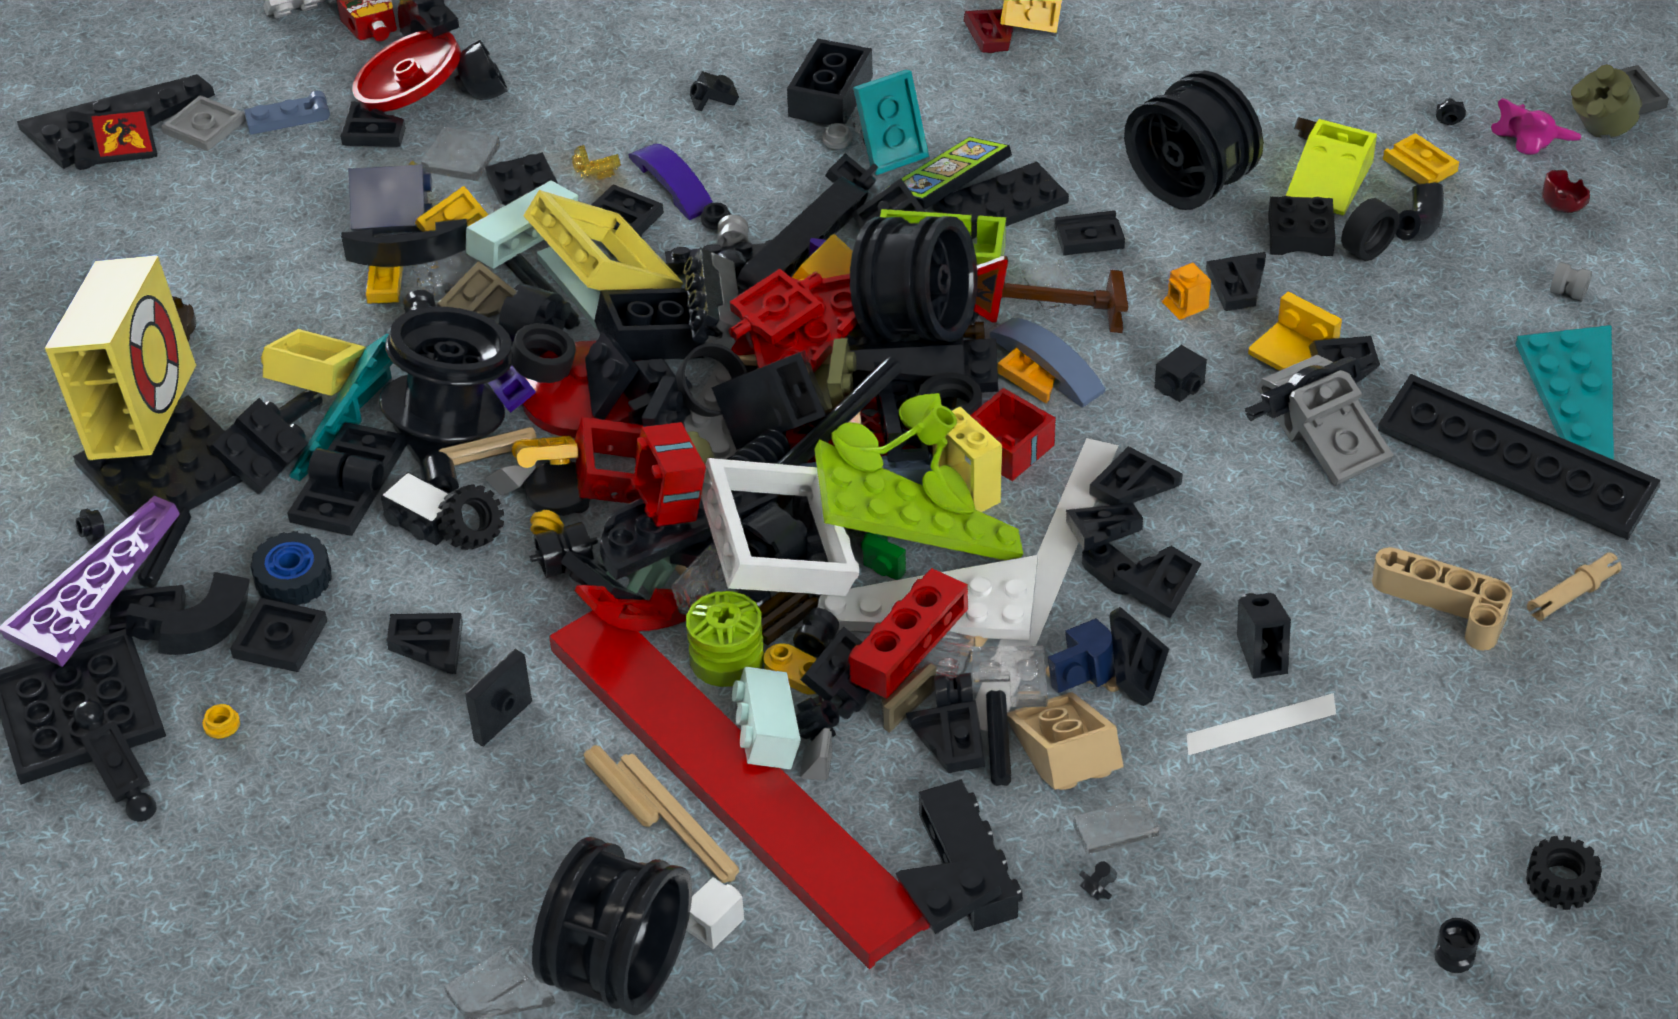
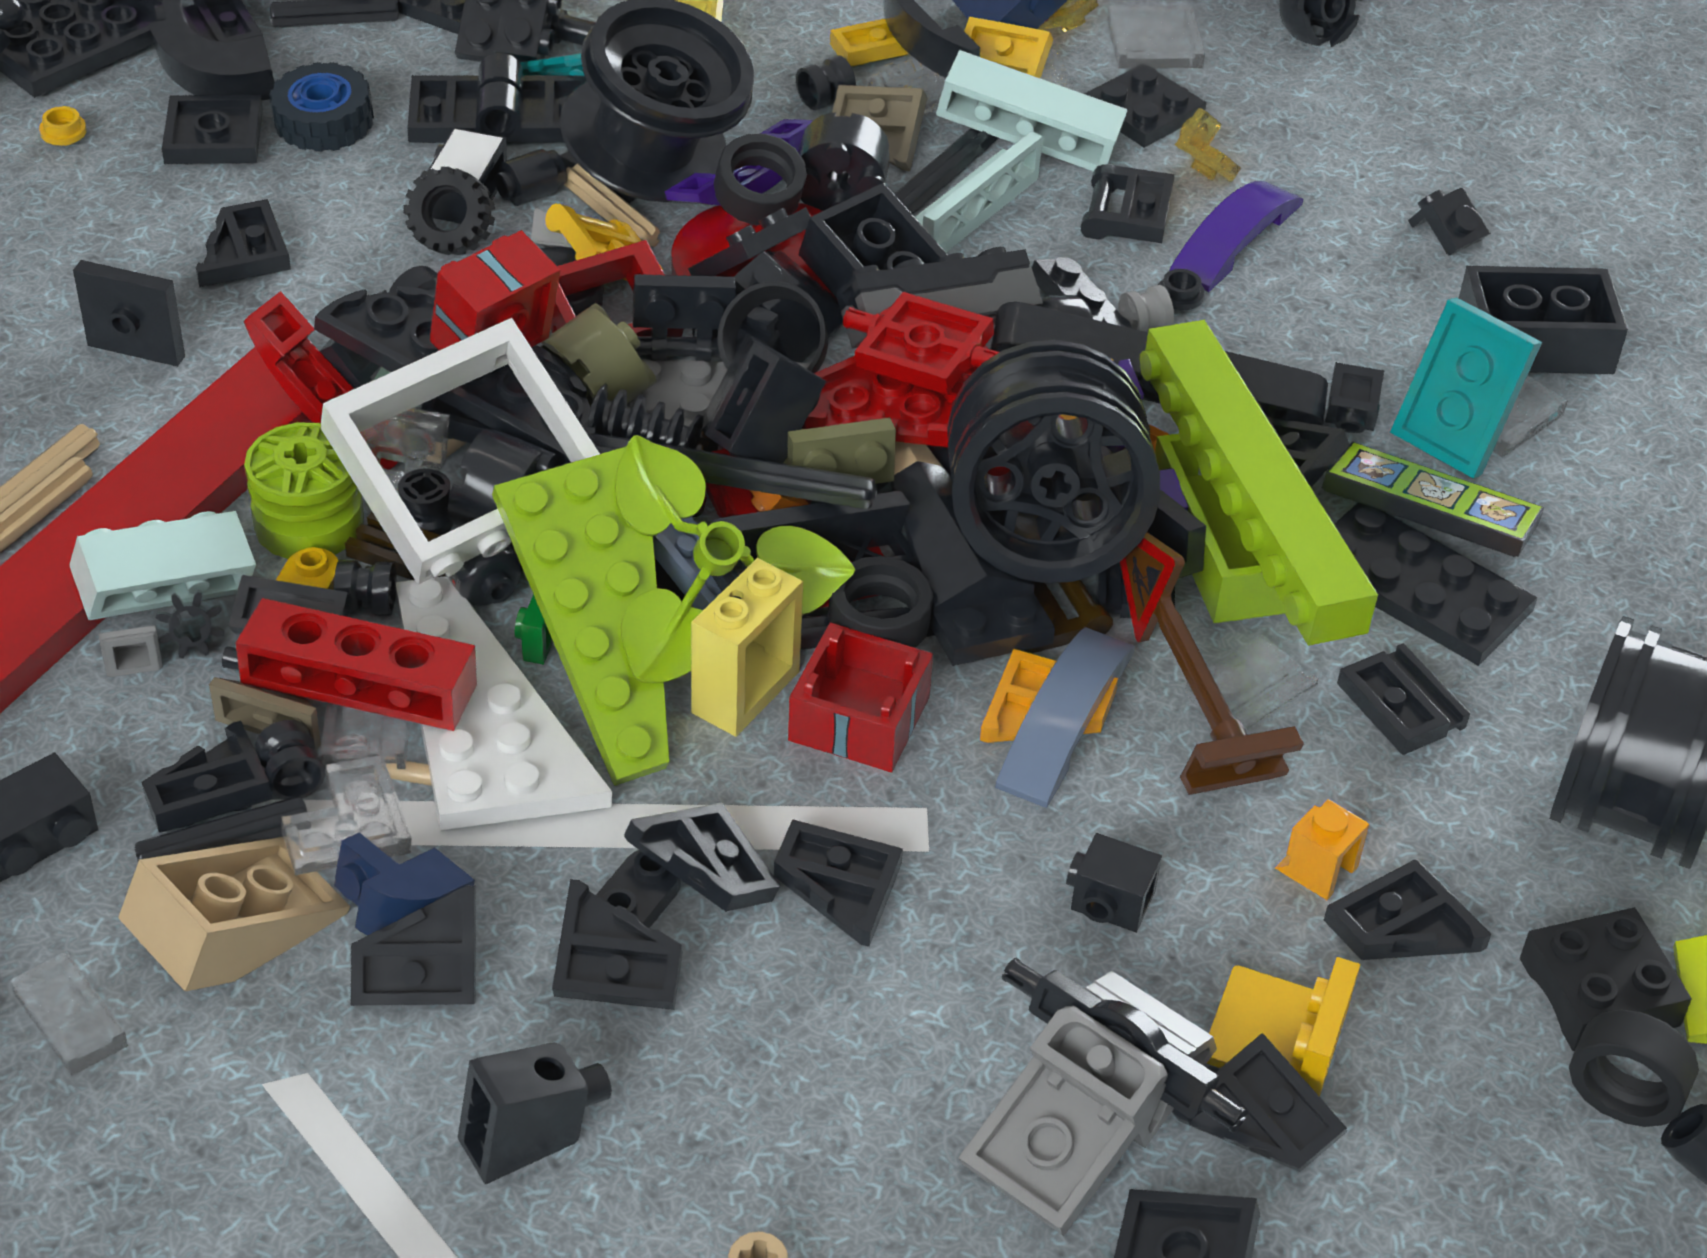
camera: 65 degrees right, 0 degrees up
(569, 231) = (1033, 131): light yellow window -> none
(985, 214) = (1258, 484): none -> lime brick

